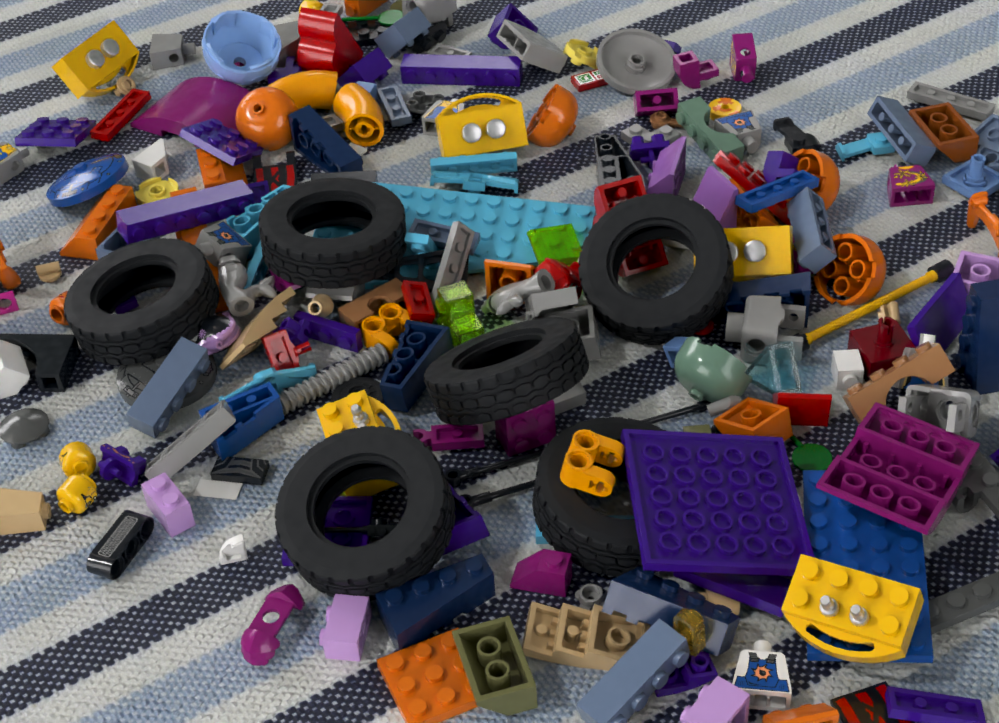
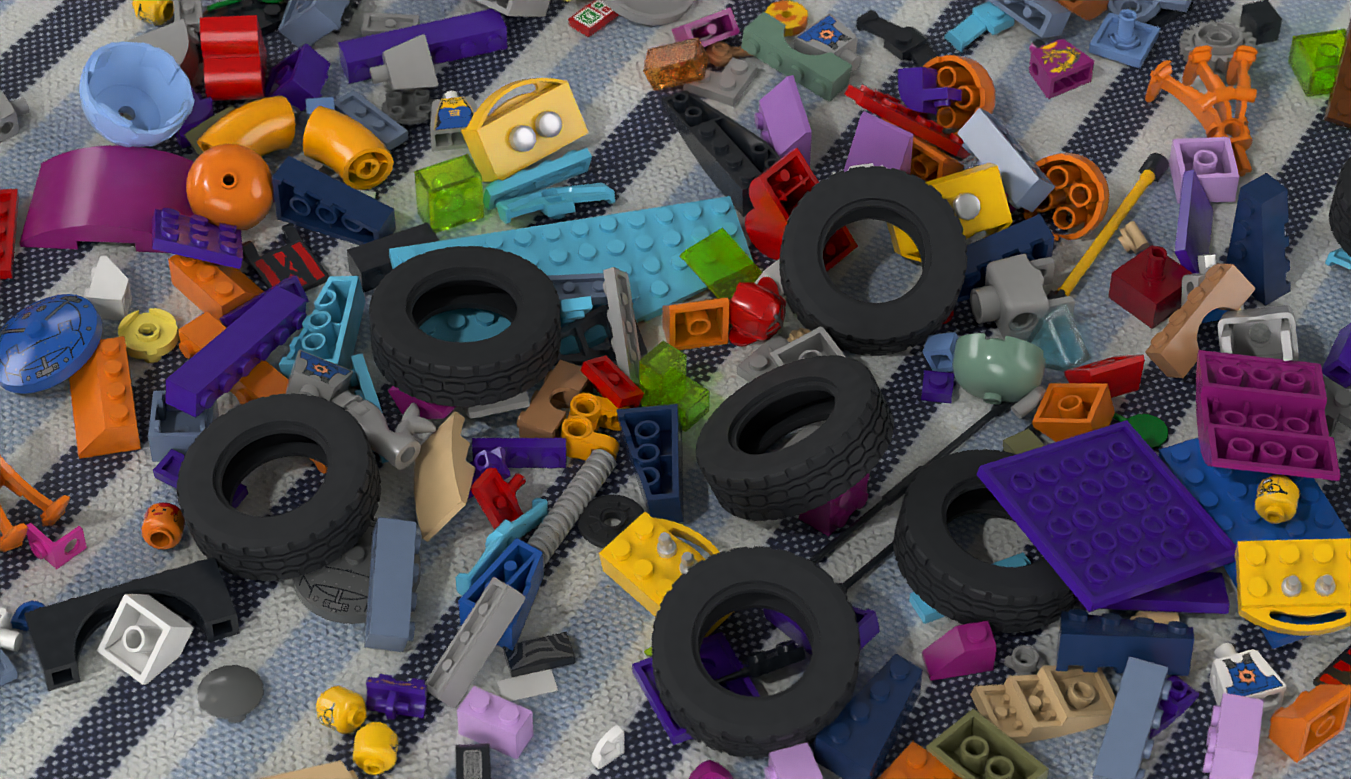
camera: 30 degrees left, 5 degrees up
(49, 272) = (92, 485): tan plate -> none
(218, 333) = (402, 495): hat -> none
(325, 304) = (492, 421): tan cone -> none
(403, 157) = (449, 193): none -> clear neon green brick
(437, 77) = (407, 67): none -> light grey torso
(452, 436) = (756, 533): magenta plate -> none
(516, 293) = (727, 337): light grey piece -> none
(550, 301) = (777, 340): light grey container -> none
(554, 118) = (598, 83): orange cylinder -> none
(578, 463) = (959, 511): light orange piece -> none
(619, 116) = (676, 64): none -> clear orange brick
(647, 151) = (742, 103): dark purple hips -> none
(663, 377) = (937, 386): none -> dark purple plate
(690, 625) = (1169, 653): clear yellow plate -> none
(776, 191) = (946, 122): blue plate -> none
(846, 368) = (1127, 318): white brick -> none
(870, 535) = (1277, 499): none -> yellow head

